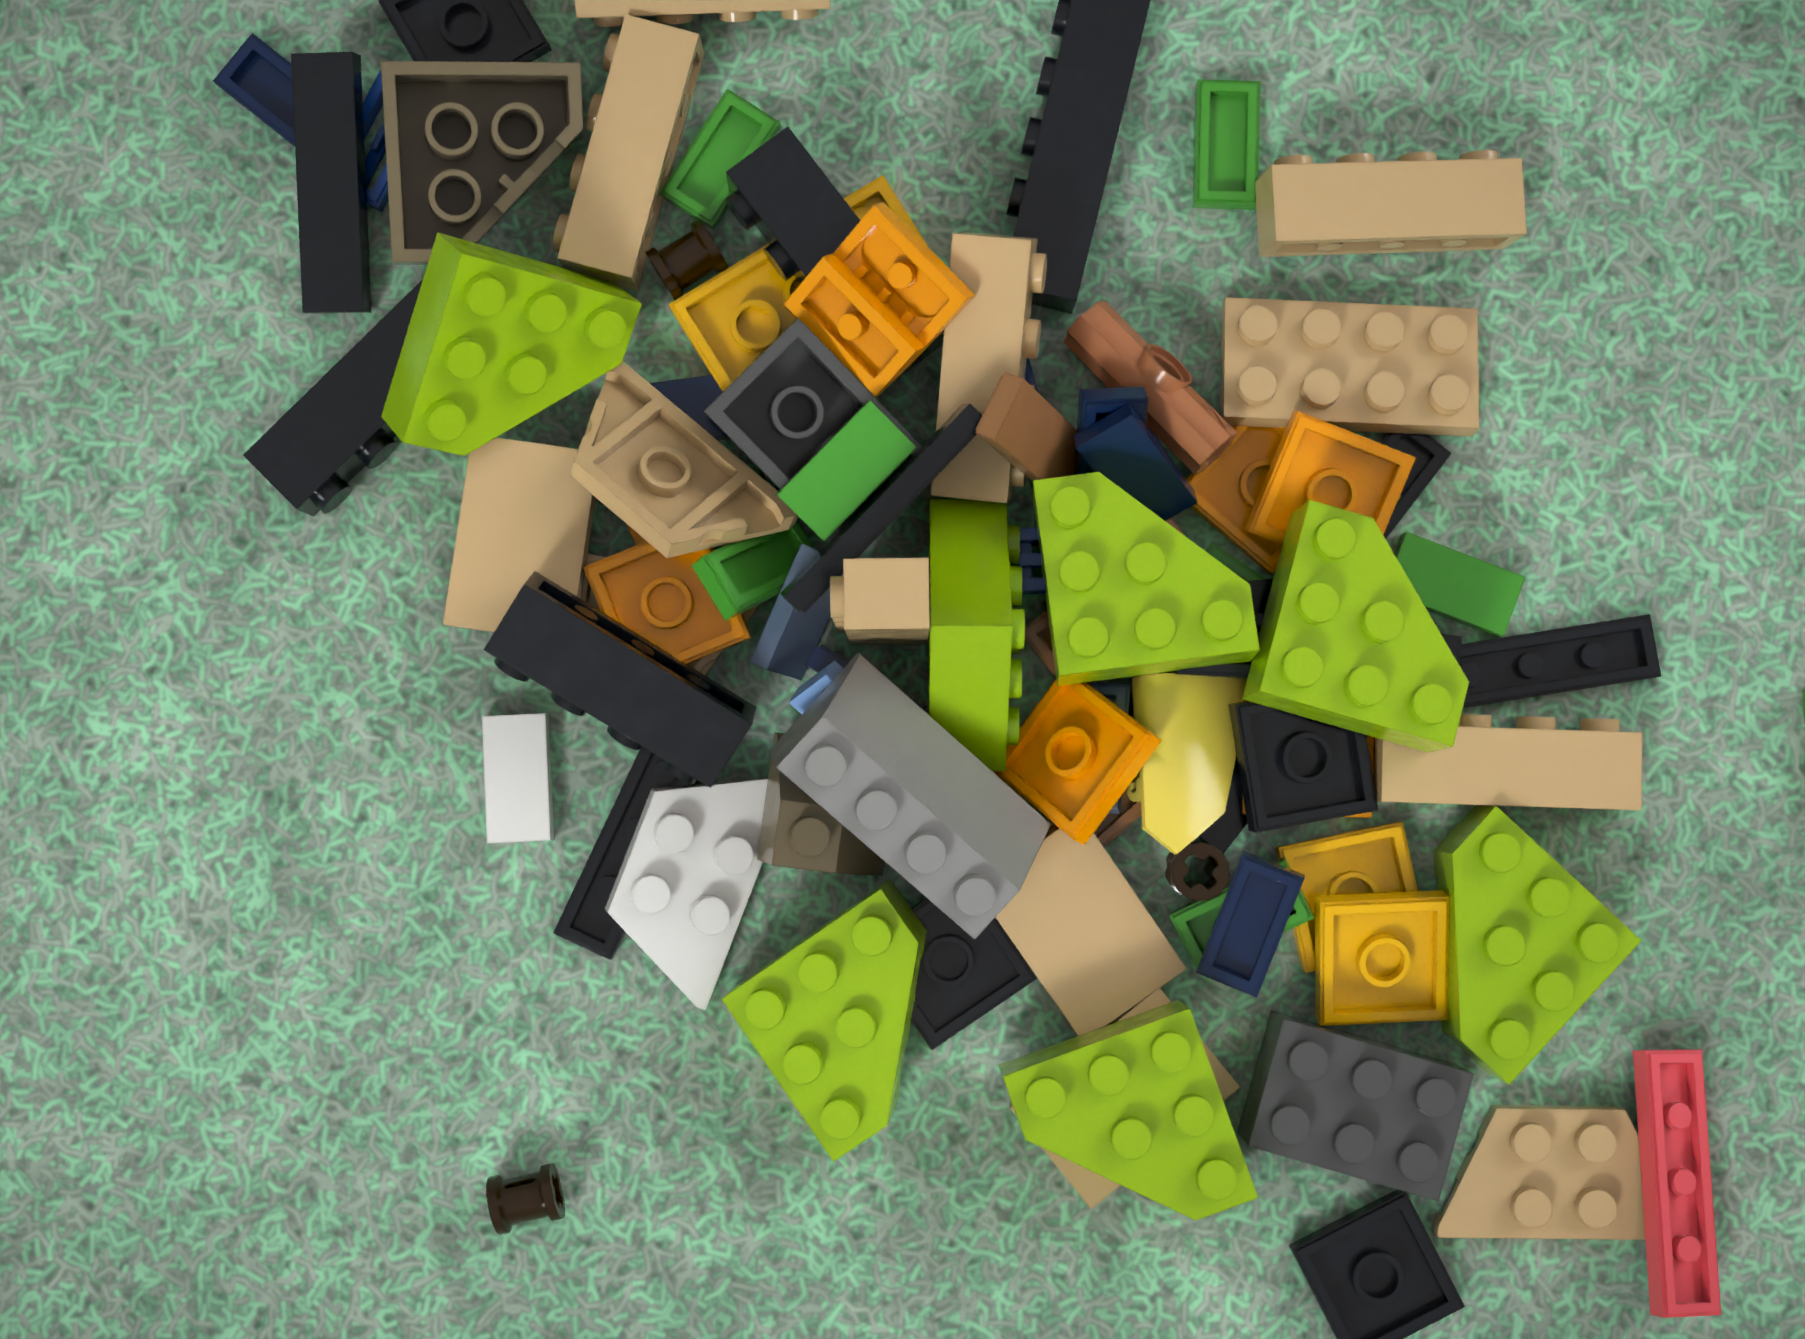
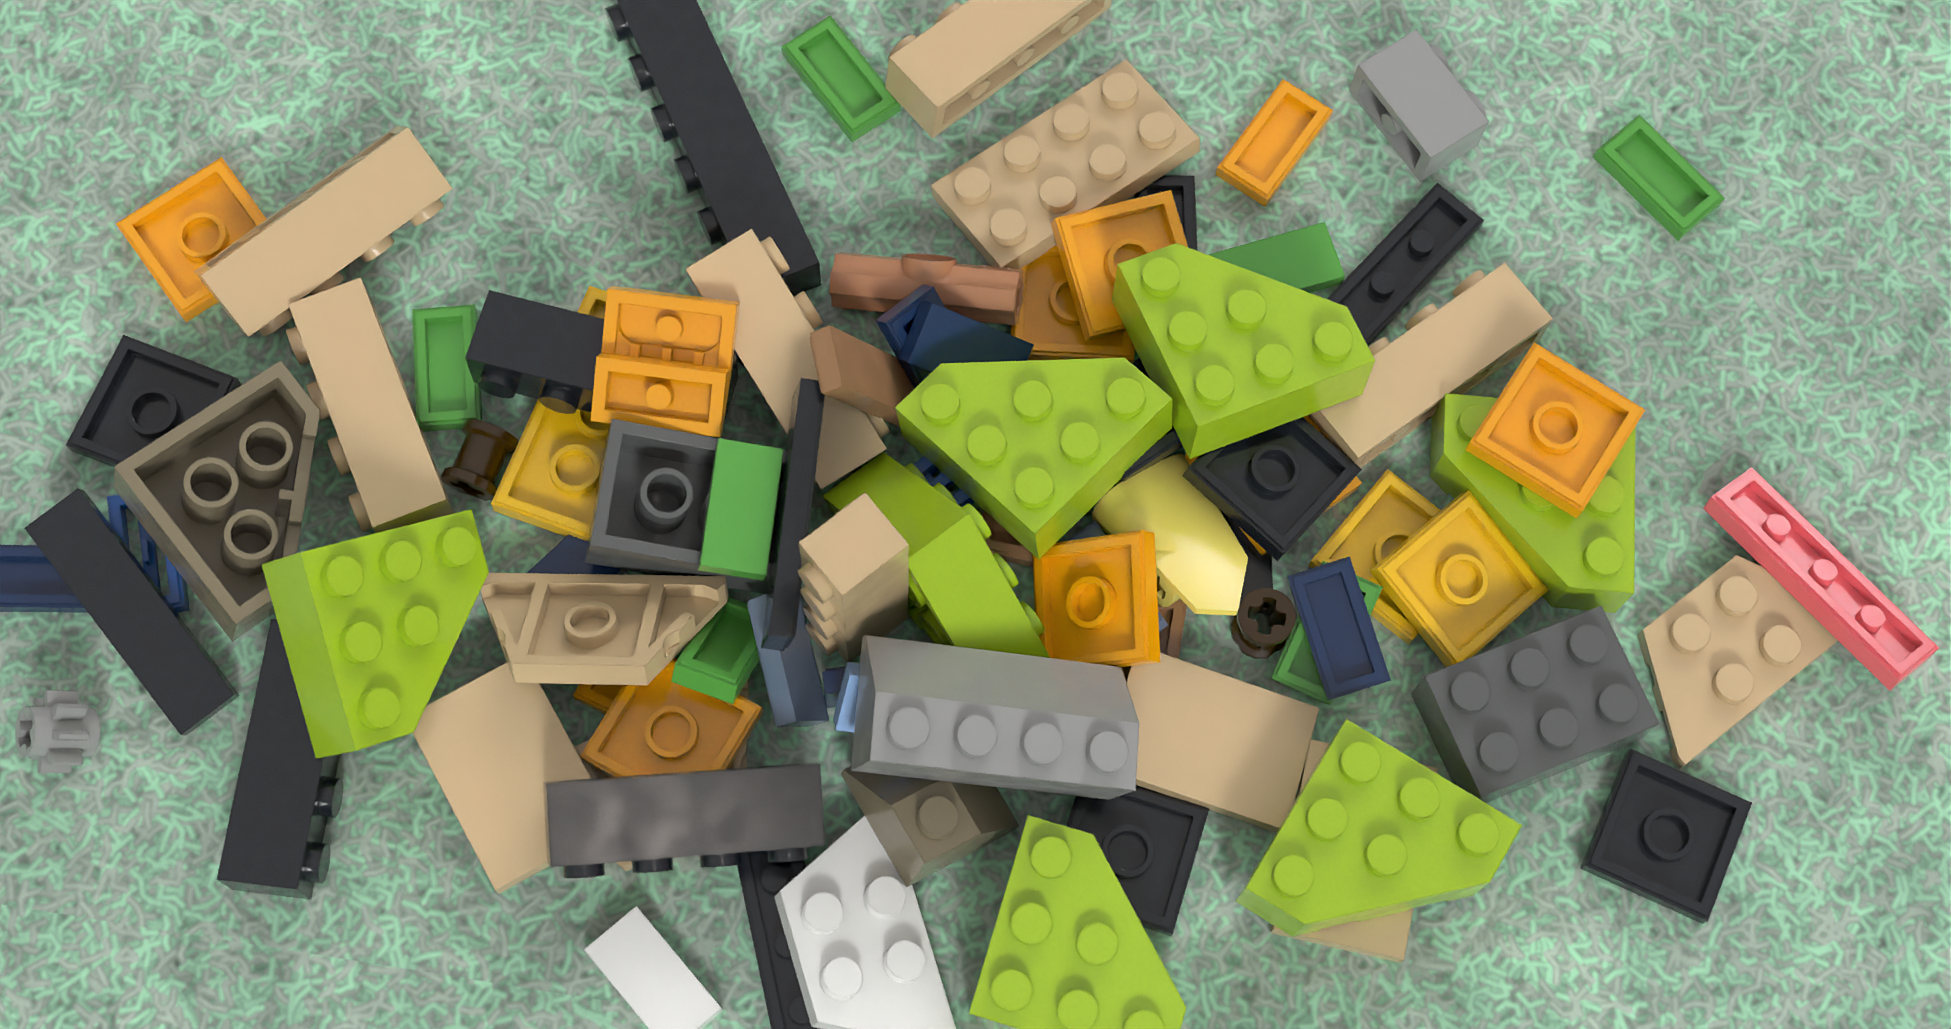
camera: 45 degrees left, 15 degrees down
(210, 240) = (57, 731): none -> light grey gear
(1542, 474) = (1274, 142): none -> light orange tile
(1558, 910) = (1555, 430): none -> light orange tile
(1692, 537) = (1419, 104): none -> light grey brick

